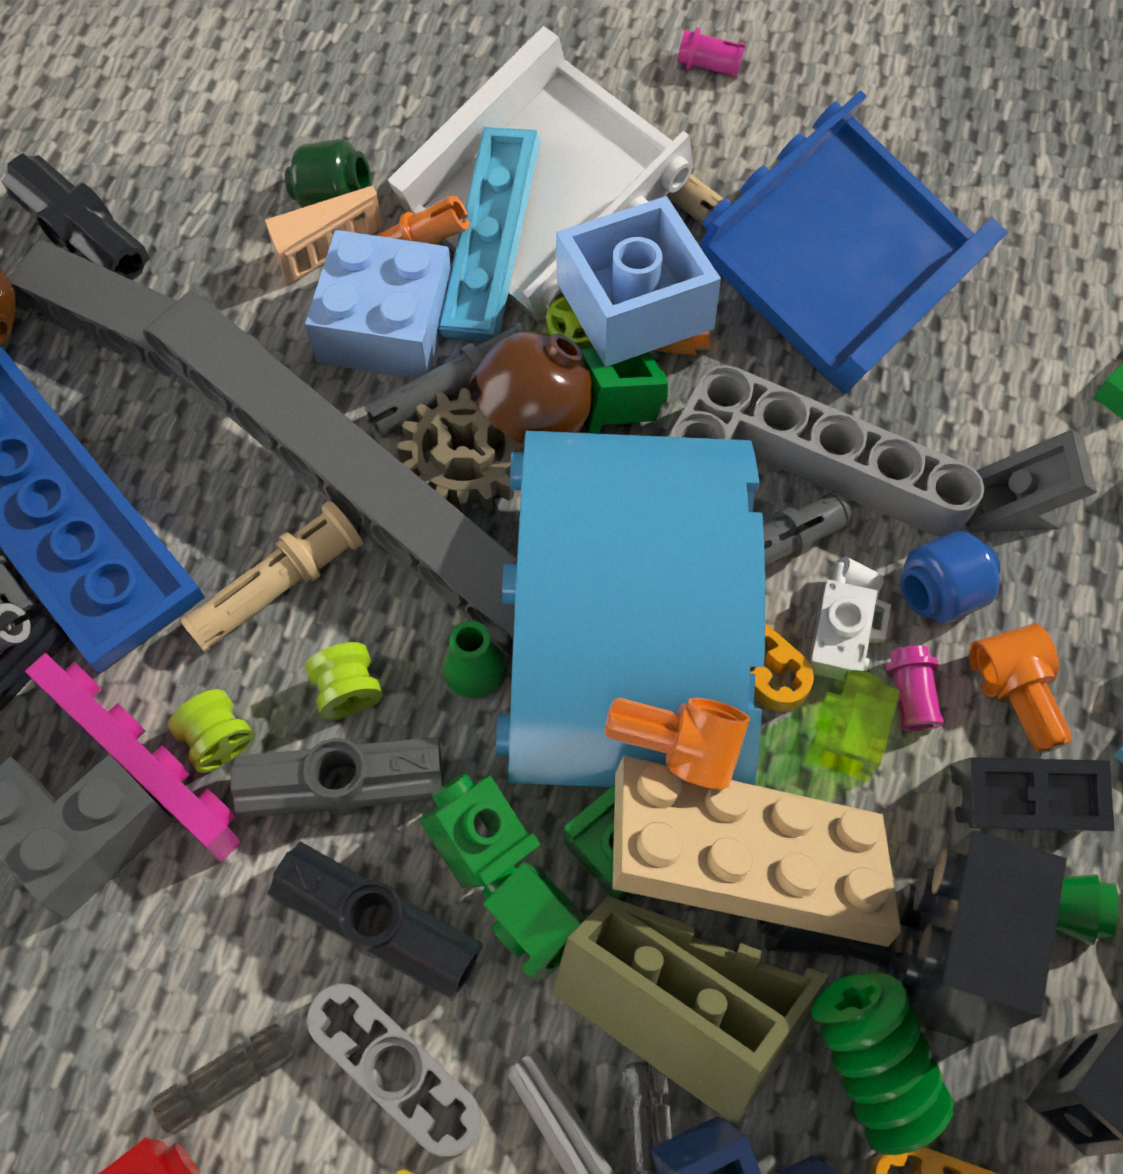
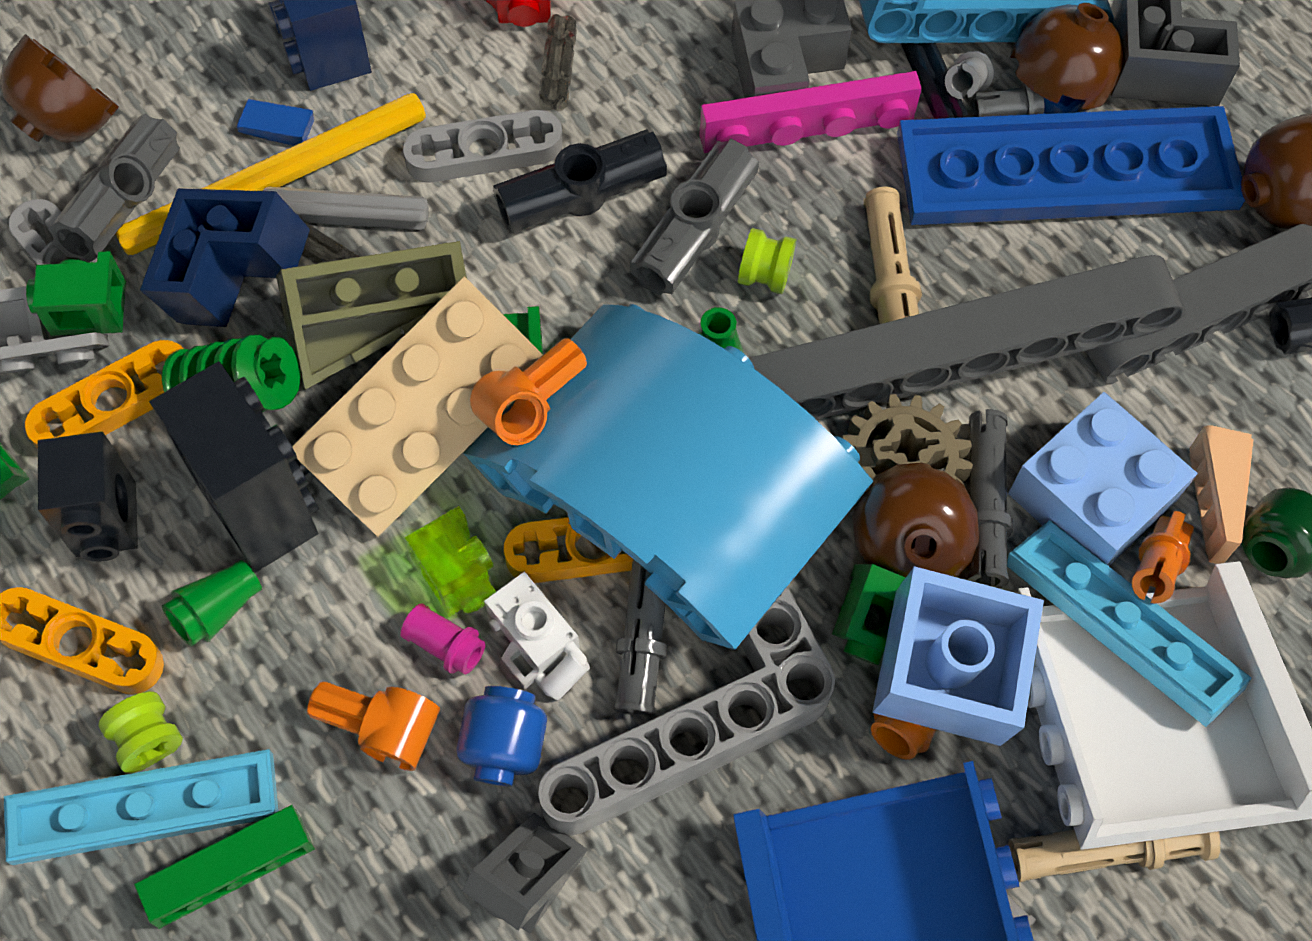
camera: 125 degrees right, 0 degrees up
(210, 730) = (793, 165): lime wheel -> none
(450, 826) = (574, 280): green brick -> none
(532, 917) = (503, 264): green brick -> none
(1034, 794) = (297, 642): black hinge -> none

